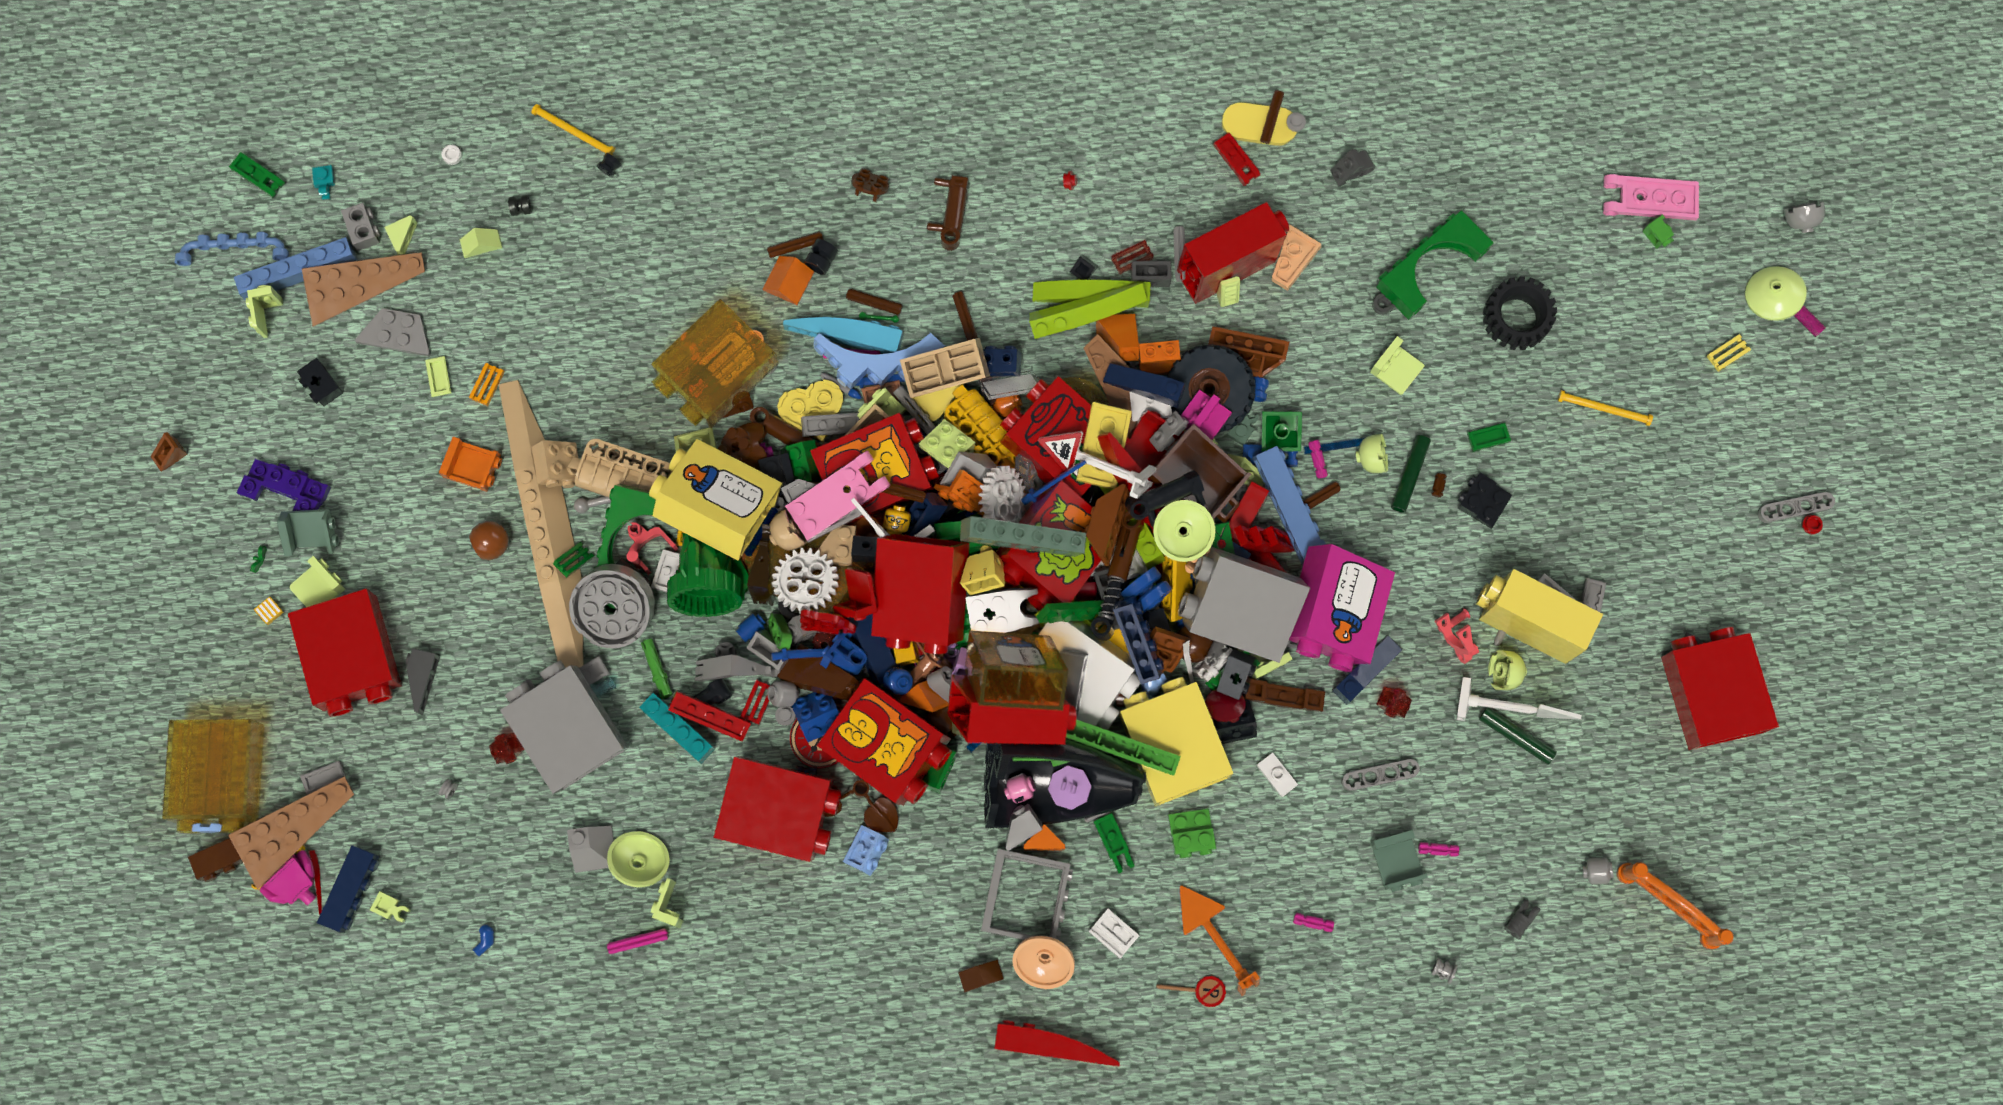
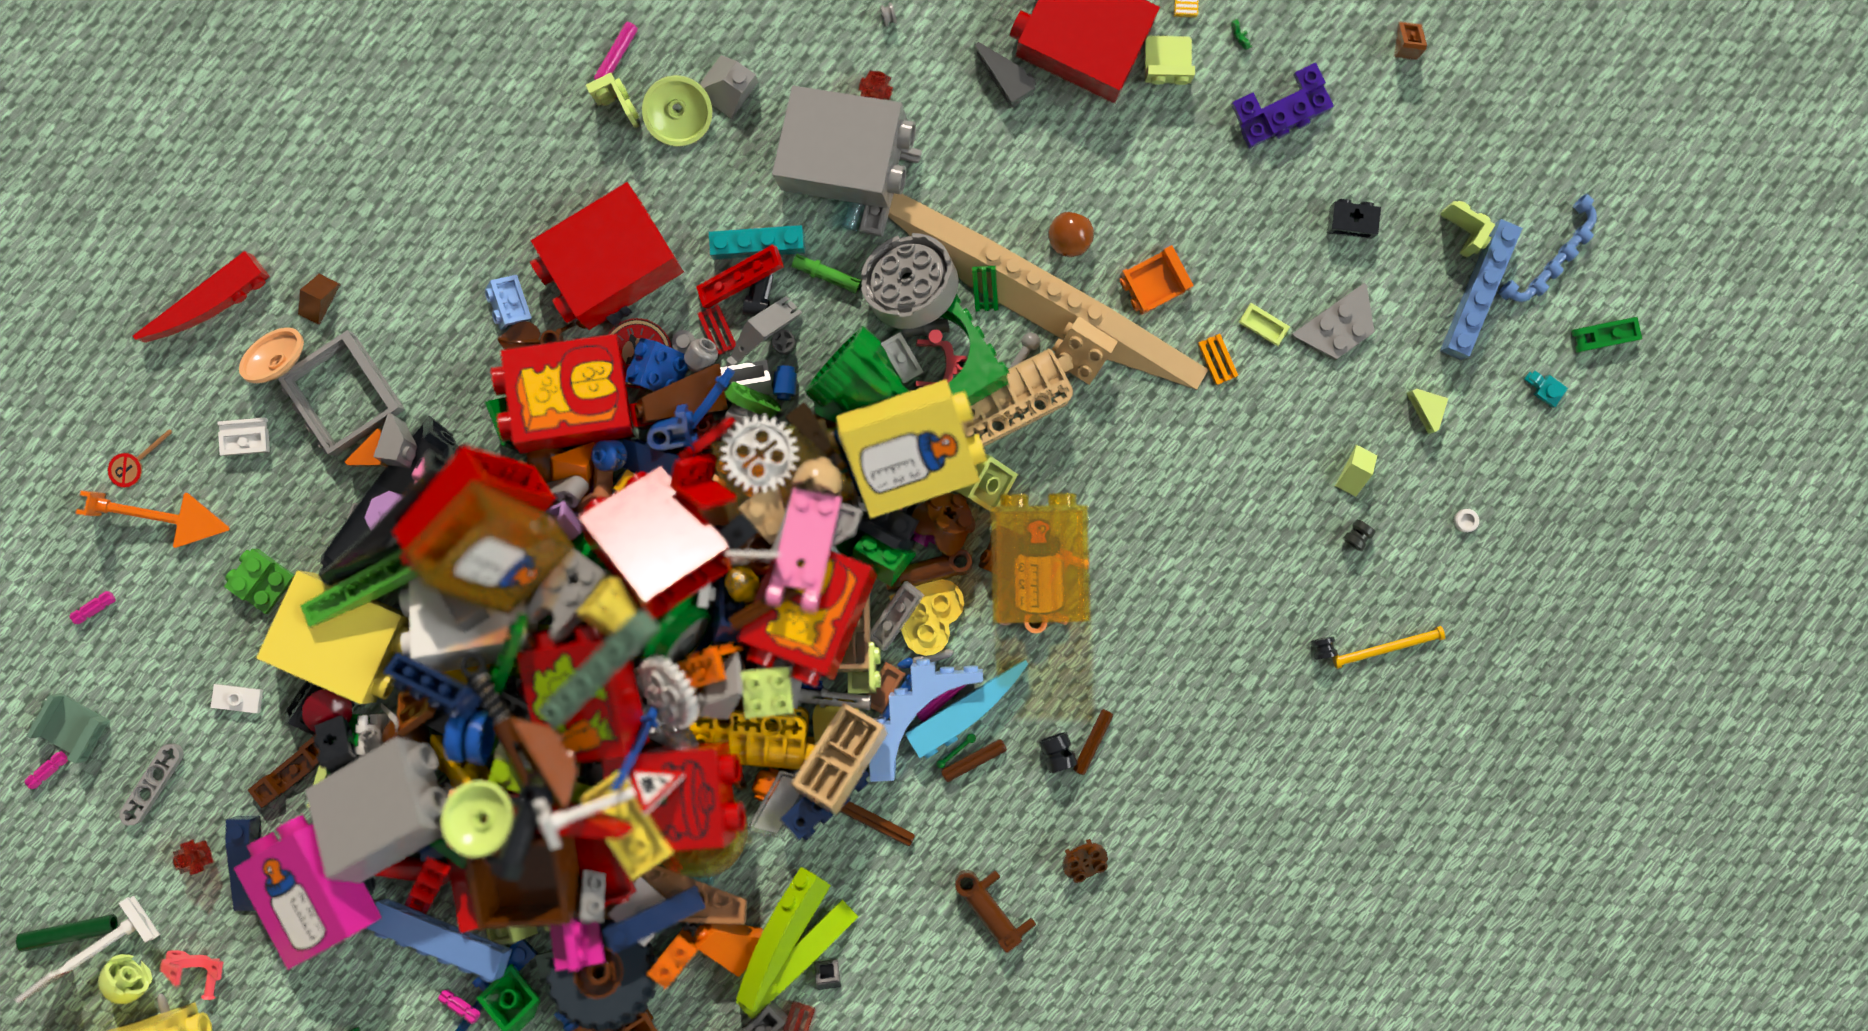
camera: 135 degrees right, 10 degrees up
(307, 529) = (1227, 92): sand green panel -> none
(346, 284) = (1423, 321): medium nougat wing -> none
(358, 228) = (1470, 375): light grey brick -> none
(788, 279) = (1066, 705): orange slope -> none
(1113, 841) = (317, 509): green hinge -> none
(1322, 495) = (427, 979): reddish brown axle -> none

